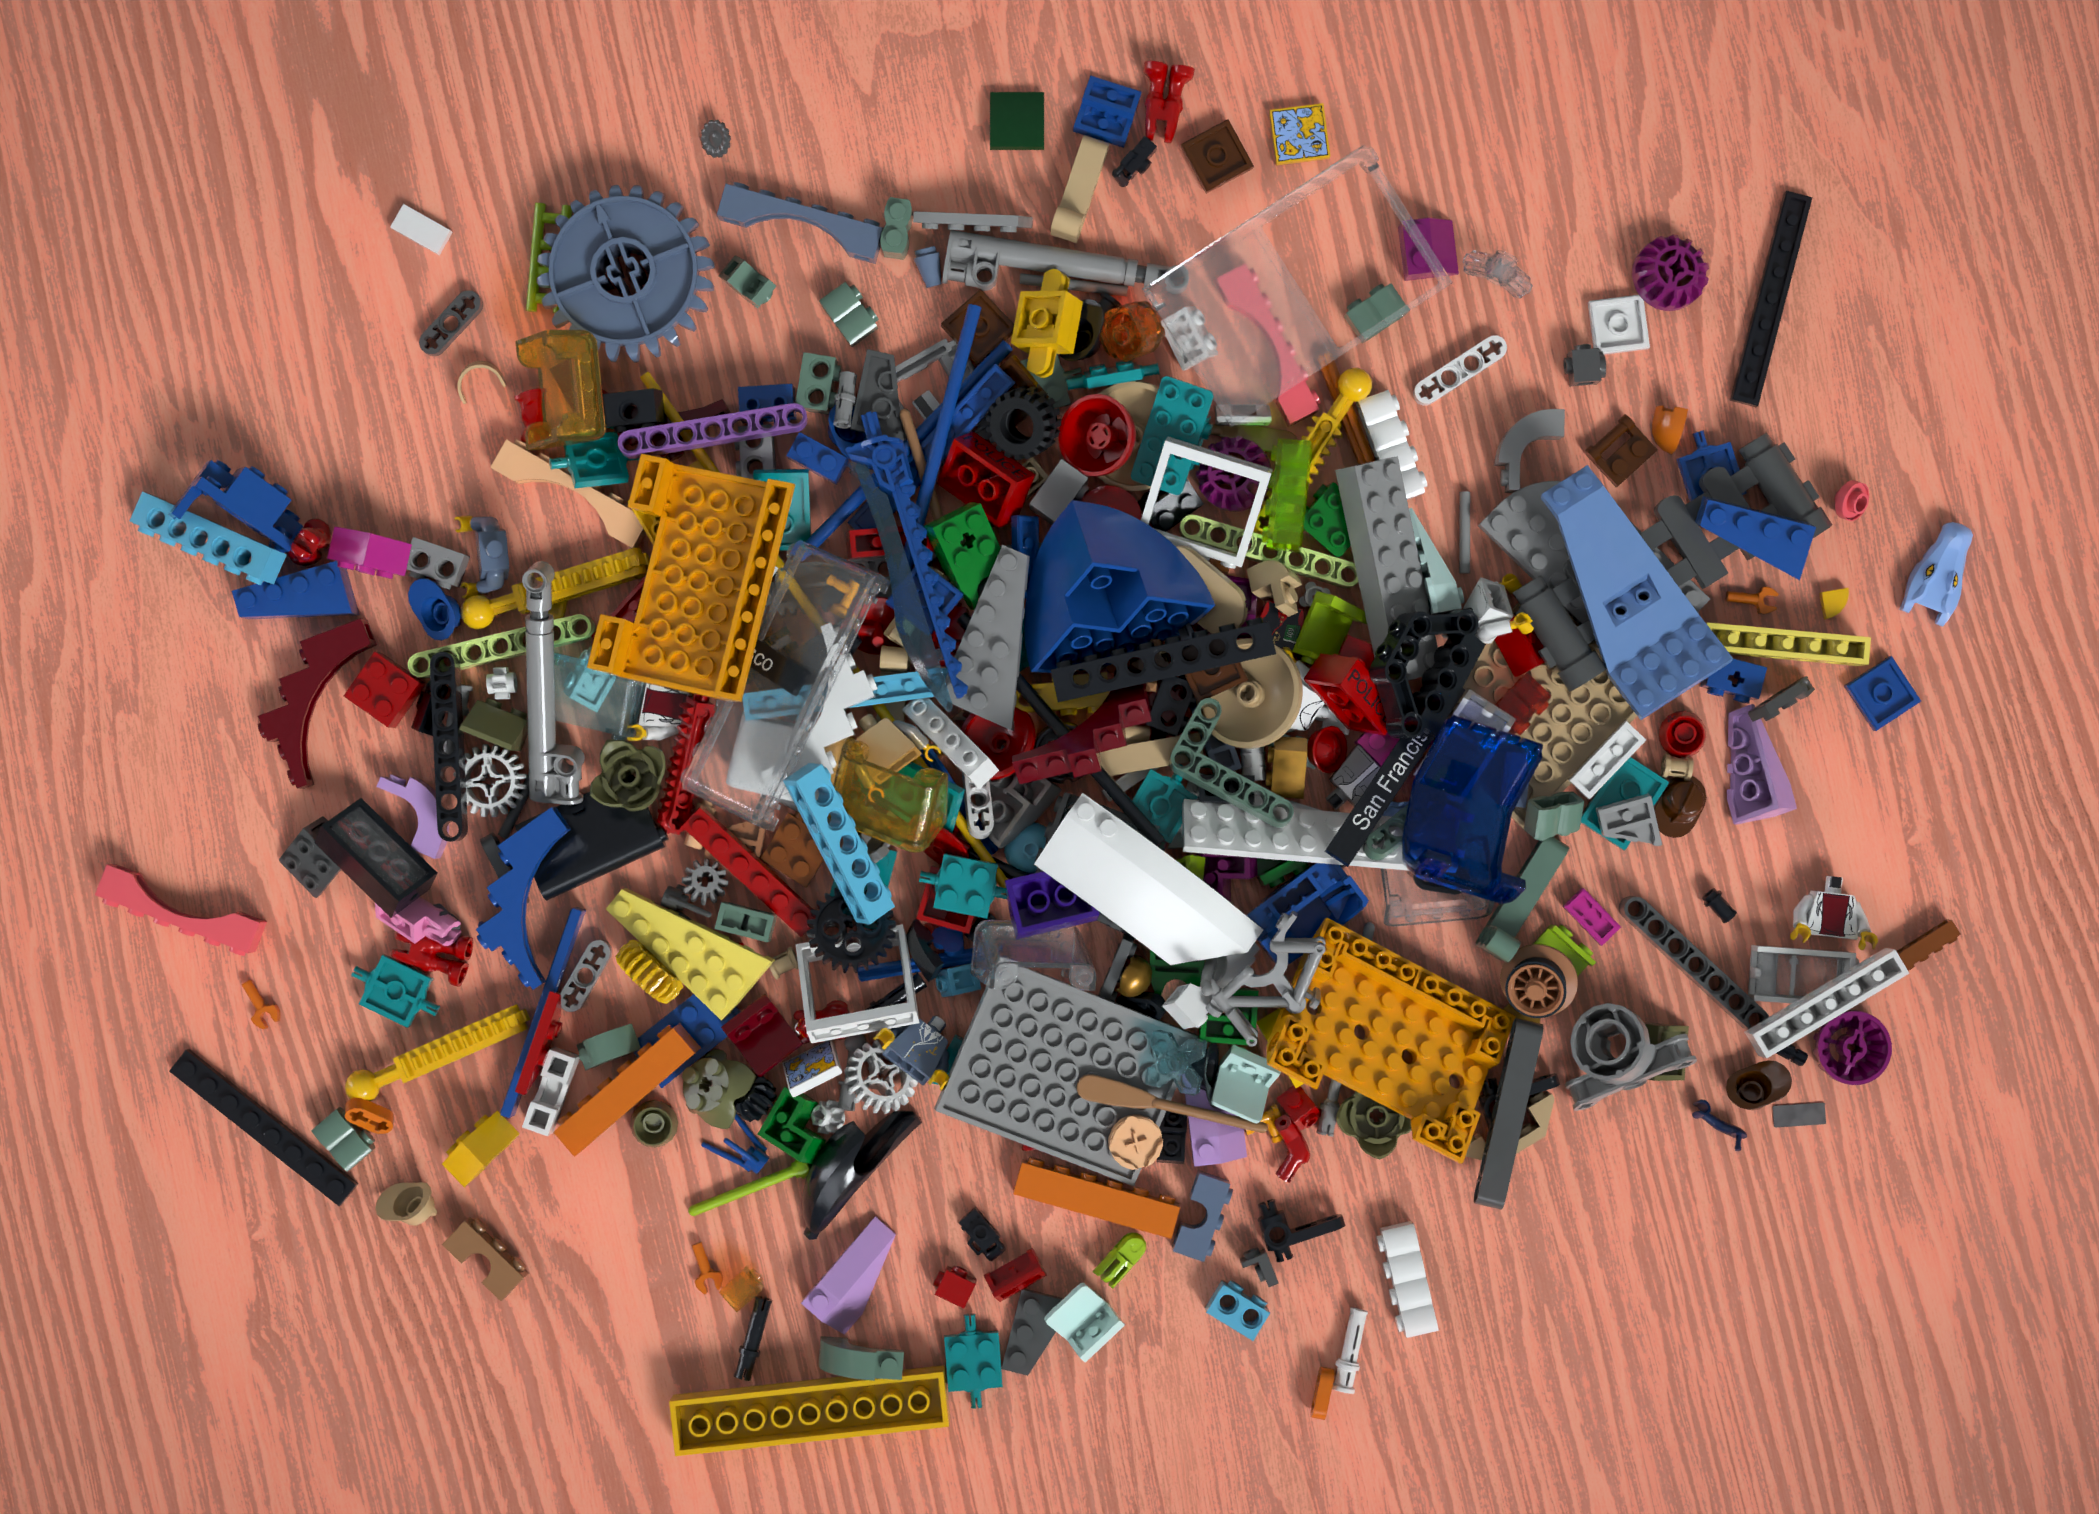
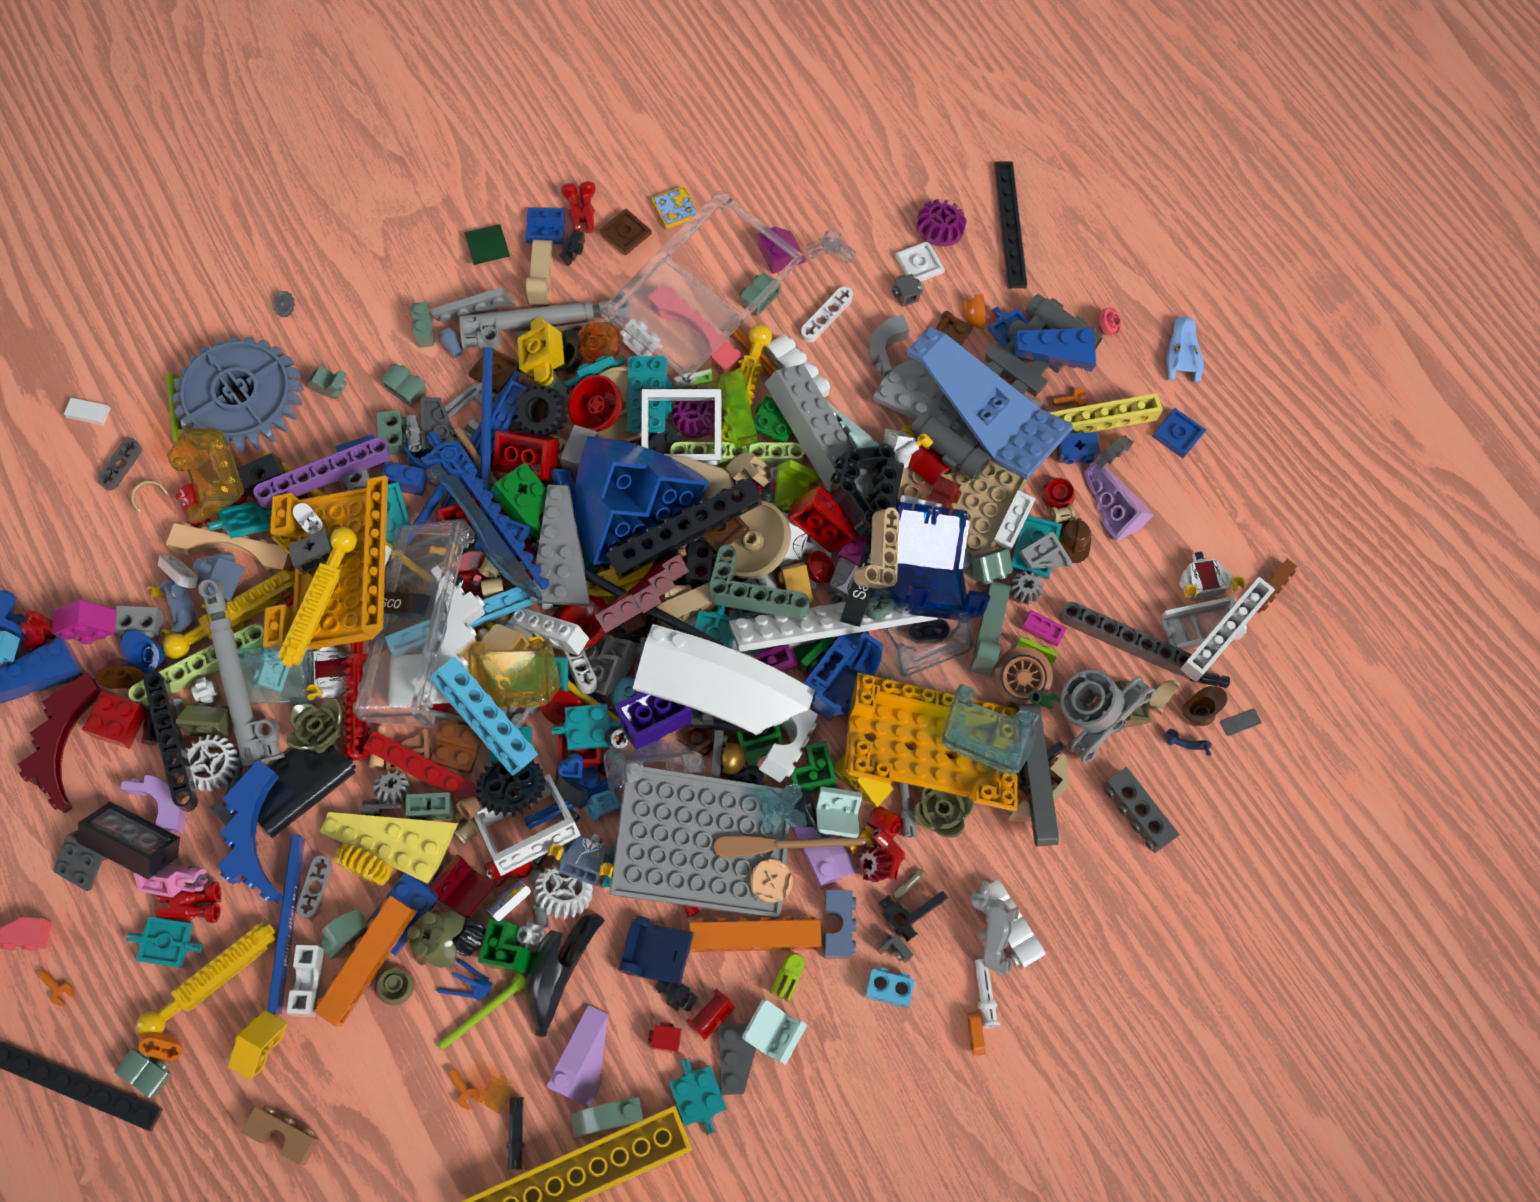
camera: 25 degrees left, 20 degrees down
(402, 628) = (119, 674): none -> reddish brown piece
(406, 1203) = (206, 1109): tan piece -> none
(499, 514) = (177, 571): none -> white beam
(546, 1031) = (290, 936): red wing -> none
(549, 536) = (219, 567): none -> sand blue torso
(678, 554) = (311, 551): none -> flat silver brick
(683, 516) = (302, 512): none -> white piece
(717, 559) = (316, 599): none -> yellow gear
(747, 208) = (317, 338): sand blue arch -> none
(792, 940) = (467, 808): none -> medium nougat bar
(931, 929) = (571, 767): none -> blue tile
(968, 1181) = (655, 951): none -> dark blue door
(998, 913) = (622, 734): none -> black bush
(1100, 937) = (699, 741): none -> reddish brown bracket
(1173, 1134) = (798, 868): black slope -> none
(1268, 1158) = (874, 863): none -> dark red gear
(1292, 998) = (852, 728): light grey piece -> none
(1297, 1193) = (904, 888): none -> dark tan piece
(1392, 1286) = (998, 928): none -> light grey animal
(1411, 778) = (884, 552): none -> tan beam
(1458, 1059) = (989, 735): none -> clear light blue windscreen
(1464, 532) = (865, 409): light grey bar -> none
(1551, 1024) = (1043, 698): none -> dark green bar
(1599, 859) = (1026, 587): none -> light grey gear
(1642, 1228) = (1151, 813): none -> dark grey brick
(1708, 1052) = (1163, 695): none -> tan helmet
(1719, 905) = (1127, 595): black pin -> none
(1833, 602) = (1123, 386): yellow tile -> none
(1873, 1053) = (1266, 653): magenta gear -> none

